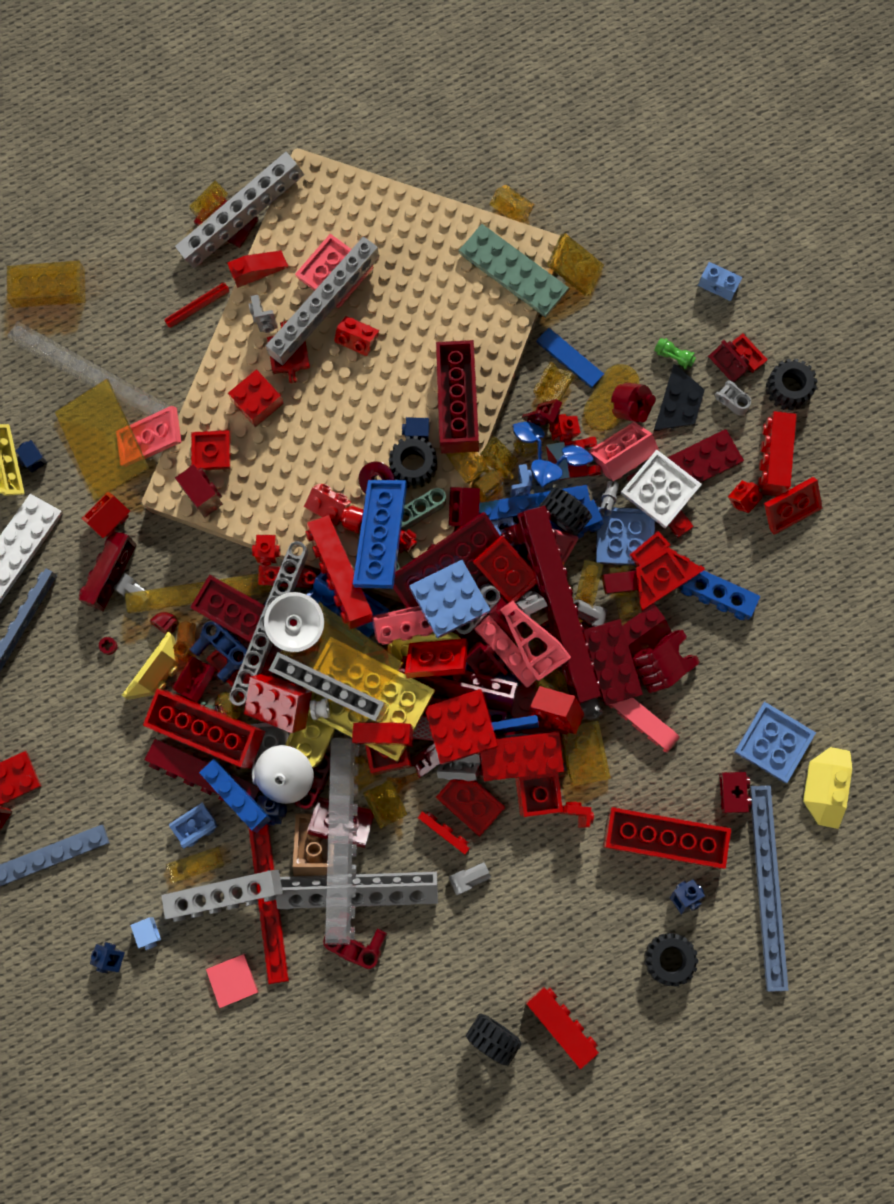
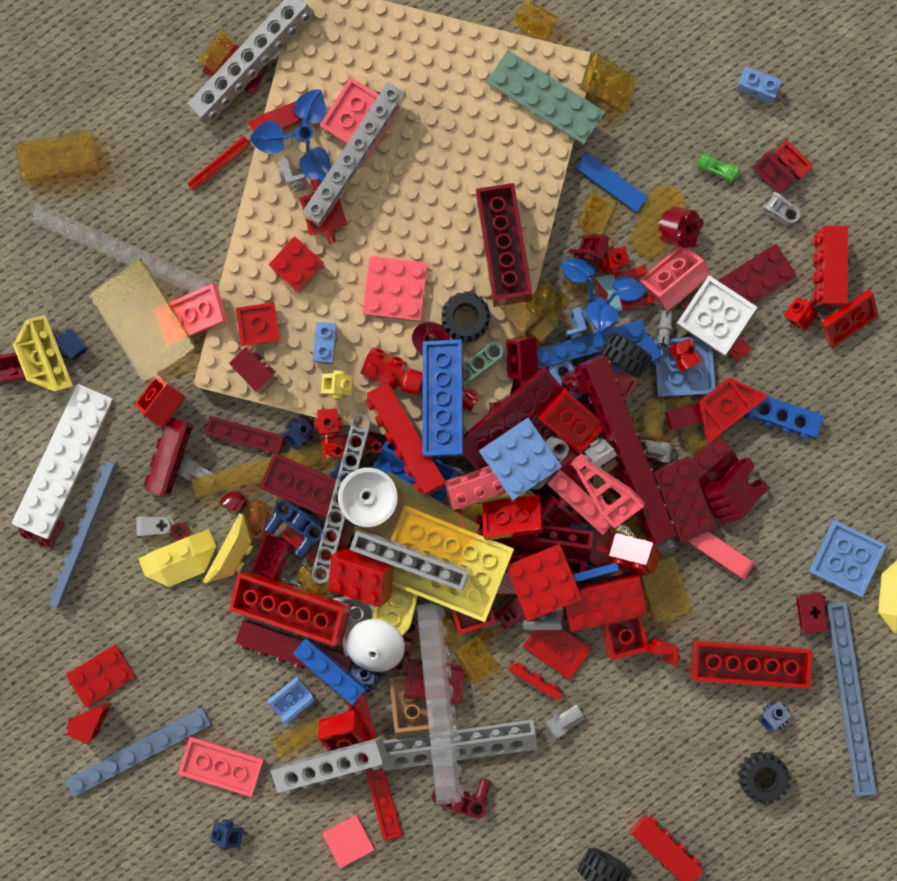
camera: 10 degrees left, 10 degrees up
(80, 636) = (151, 525): none -> light grey piece
(102, 672) = (180, 559): none -> light yellow wedge
(112, 887) = (220, 766): none -> coral plate
(146, 933) = (260, 807): light blue brick -> none
(184, 558) = (244, 434): none -> dark red plate
(237, 559) = (298, 431): none -> dark blue brick
(239, 861) = (341, 730): none -> red slope
(273, 473) = (325, 342): none -> medium blue brick
(279, 513) = (337, 384): none -> light yellow brick
(286, 259) = (269, 136): none -> blue plant
(319, 709) = (403, 580): white wheel -> none
(348, 430) = (395, 288): none -> coral plate
(355, 335) = (390, 185): red bracket -> none
(383, 734) = (468, 598): red slope -> none
(416, 427) = (465, 281): dark blue brick -> none
(626, 521) = (685, 354): none -> red wheel
(649, 549) = (710, 379): red tile -> none
(680, 401) = (727, 218): black wing -> none
(788, 398) = (850, 179): black tyre -> none

